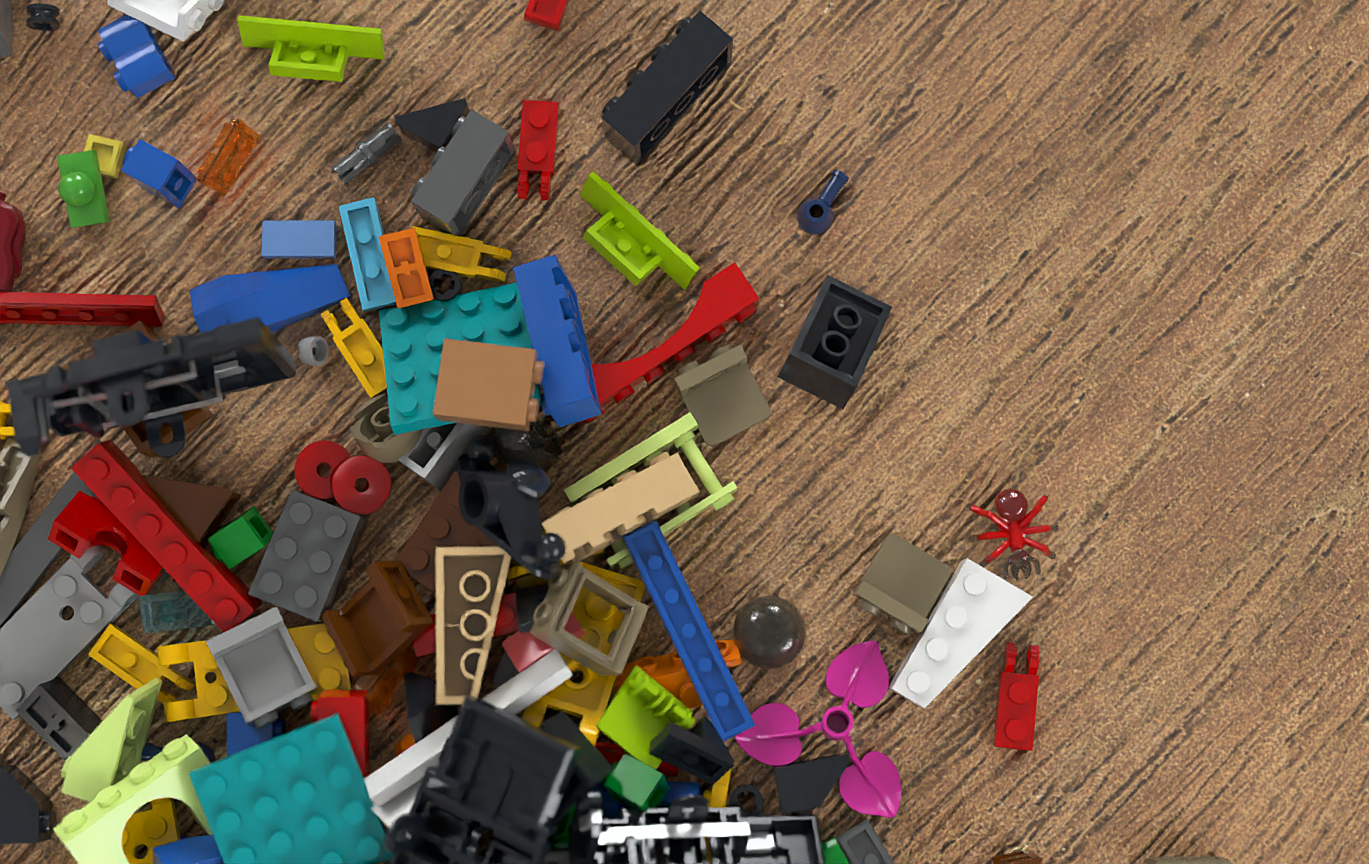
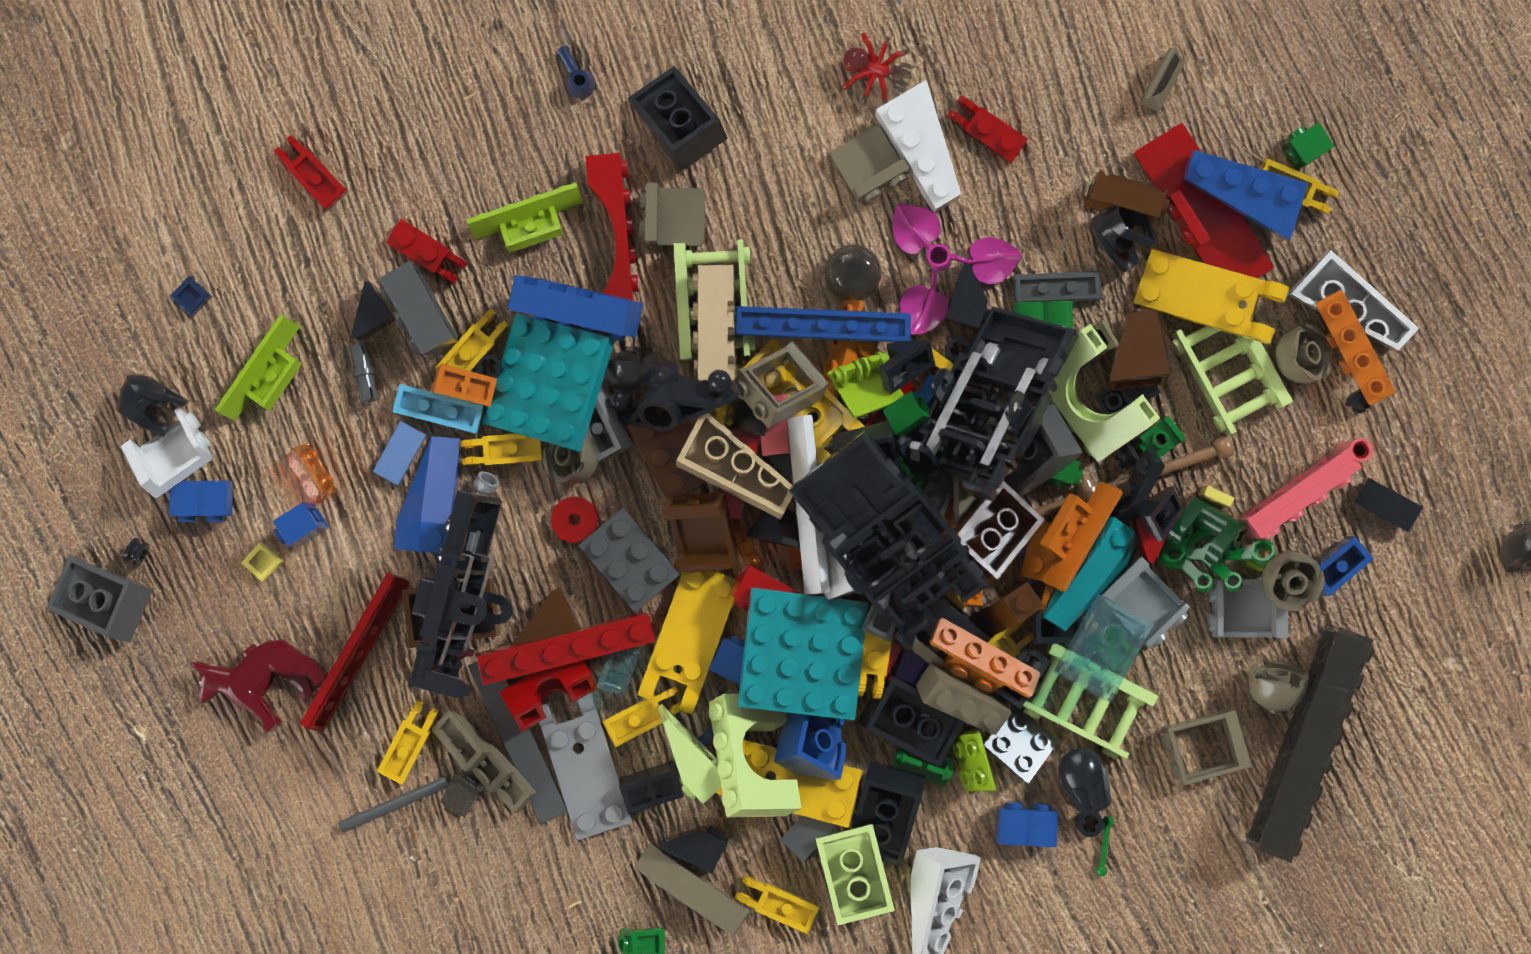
camera: 60 degrees left, 5 degrees up
(82, 189) = (280, 586): bright green tile -> none
(240, 537) = (591, 600): green brick -> none
(263, 668) = (692, 628): light grey panel -> none
(372, 496) = (587, 504): red piece -> none
(488, 385) = (584, 365): medium nougat brick -> none
(667, 87) = (435, 134): black brick -> none

